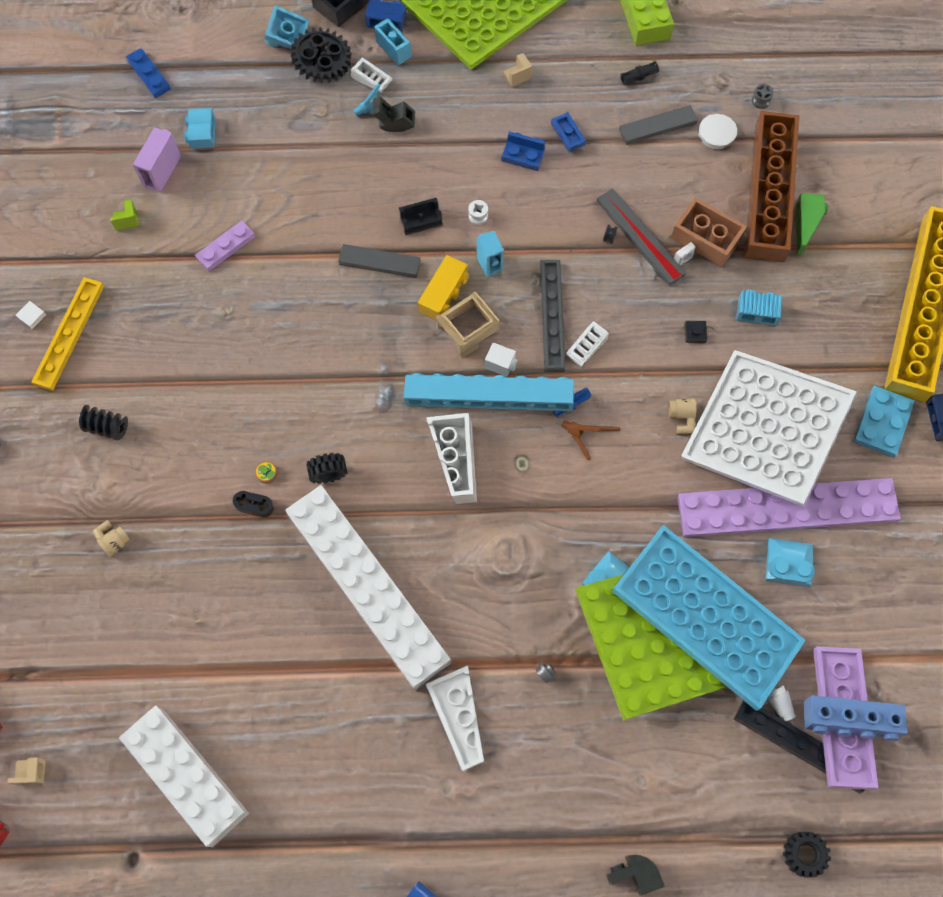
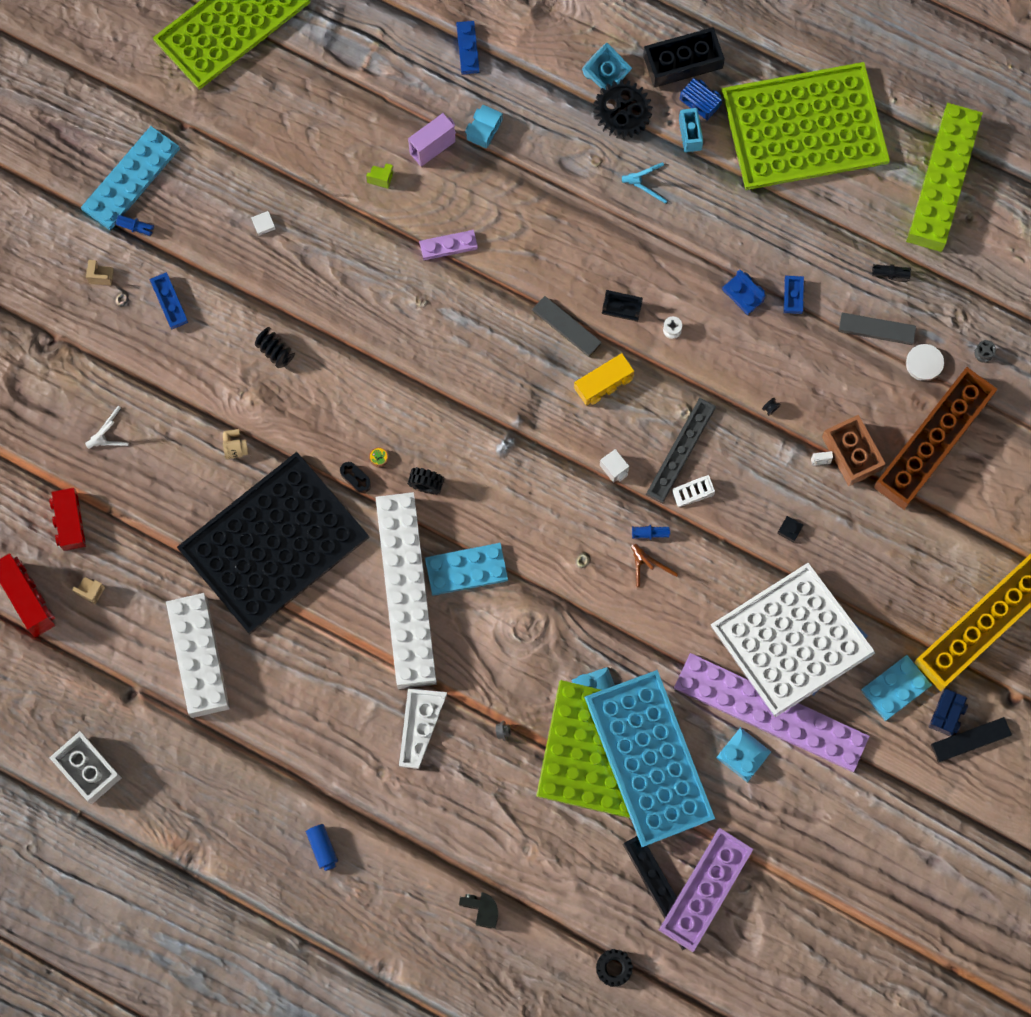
camera: 30 degrees right, 5 degrees up
(67, 334) = (284, 256): yellow plate -> none
(202, 615) = (273, 542): none -> black plate
(364, 65) = (643, 141): white slope -> none
(395, 117) = (651, 202): pearl dark grey brick -> none
(414, 533) = (466, 569): none -> medium azure plate
(456, 452) = (532, 525): white wedge -> none
(469, 344) = (599, 439): tan piece -> none
(489, 392) = (588, 489): medium azure brick -> none
(490, 253) = (658, 370): medium azure brick -> none
(520, 72) = (785, 215): tan panel -> none
(641, 237) = (796, 422): dark grey tile -> none
(683, 410) = (737, 588): tan piece -> none
(759, 307) = (855, 538): medium azure brick -> none
(782, 703) = (666, 853): white cone -> none
(809, 213) = (951, 483): bright green slope -> none
(855, 717) = (709, 892): medium blue brick -> none

